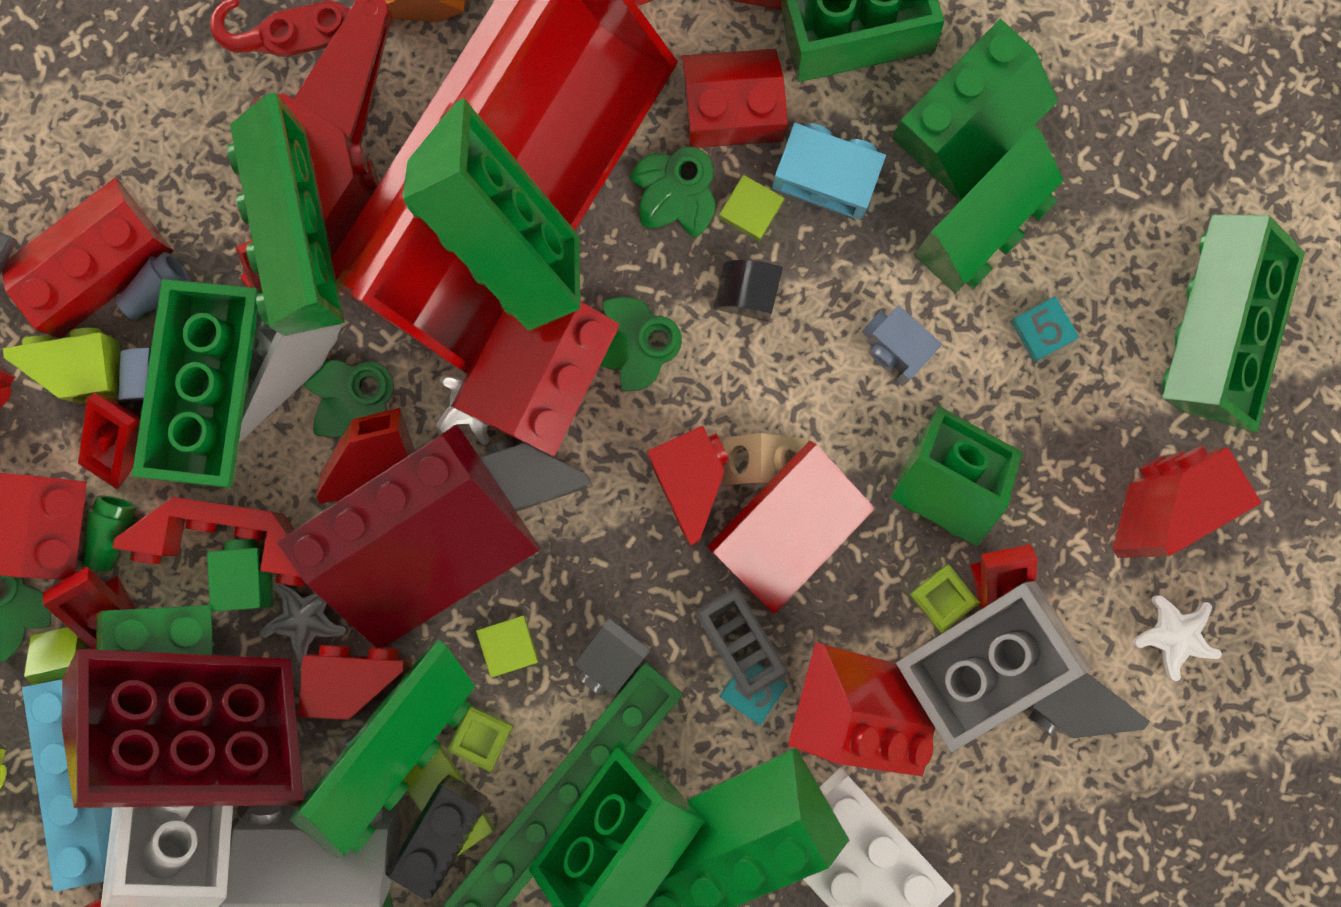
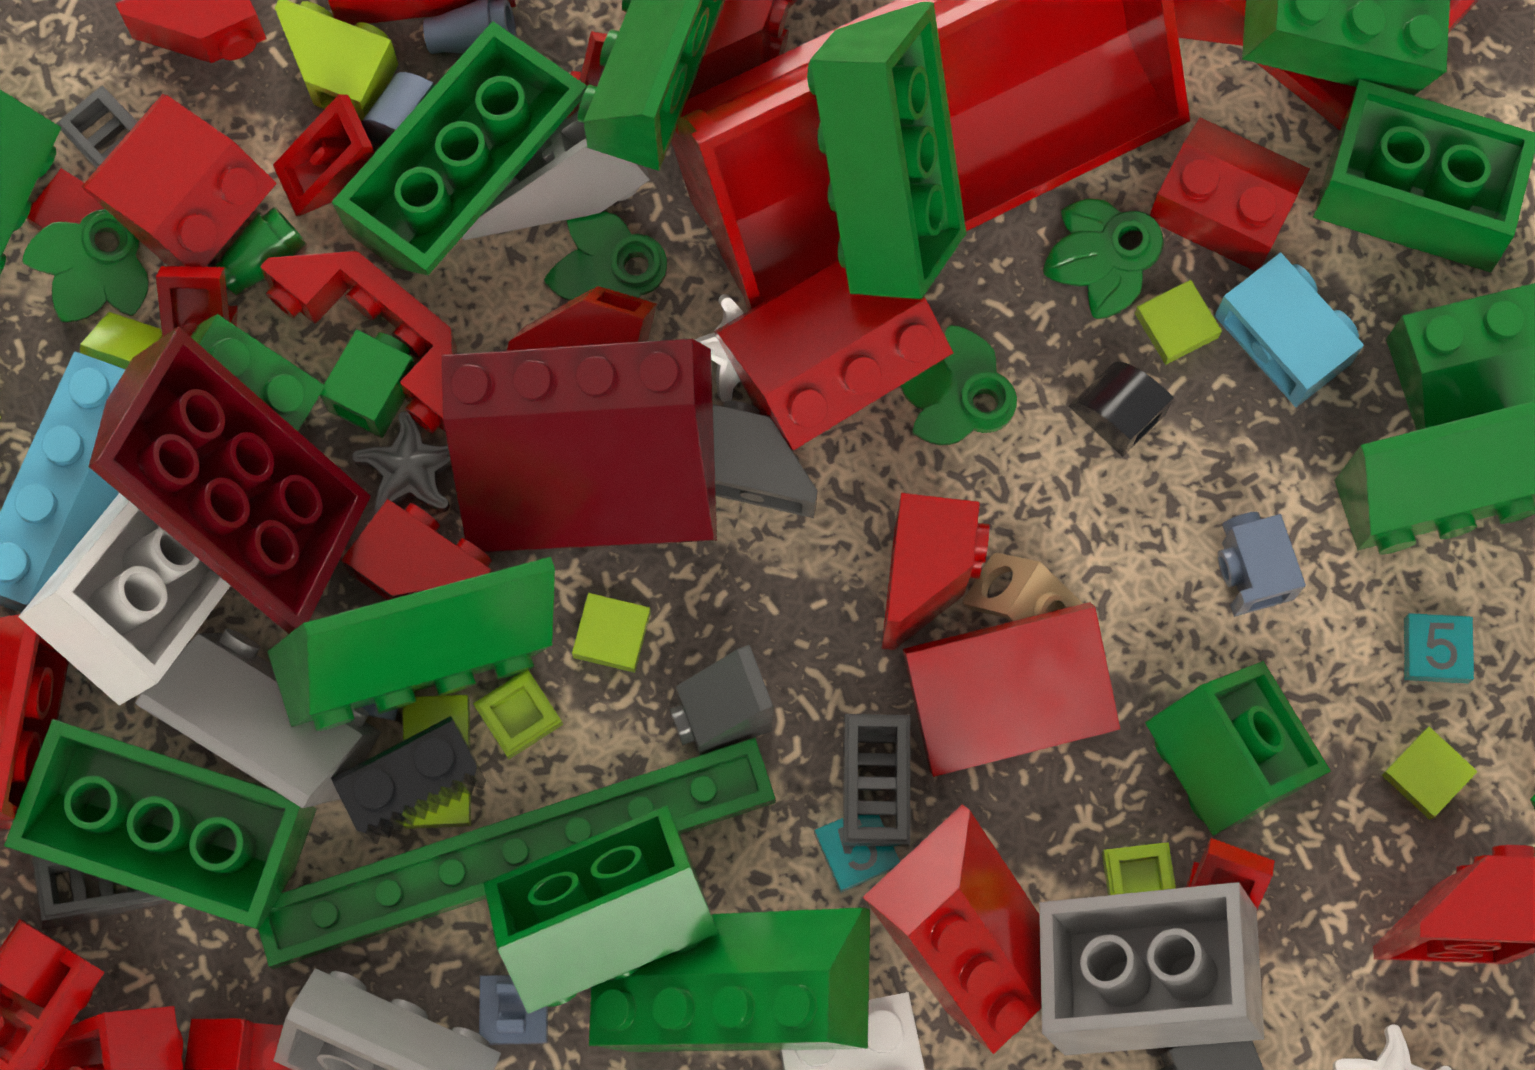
camera: 30 degrees right, 10 degrees down
(1085, 416) = (1429, 773): none -> lime tile

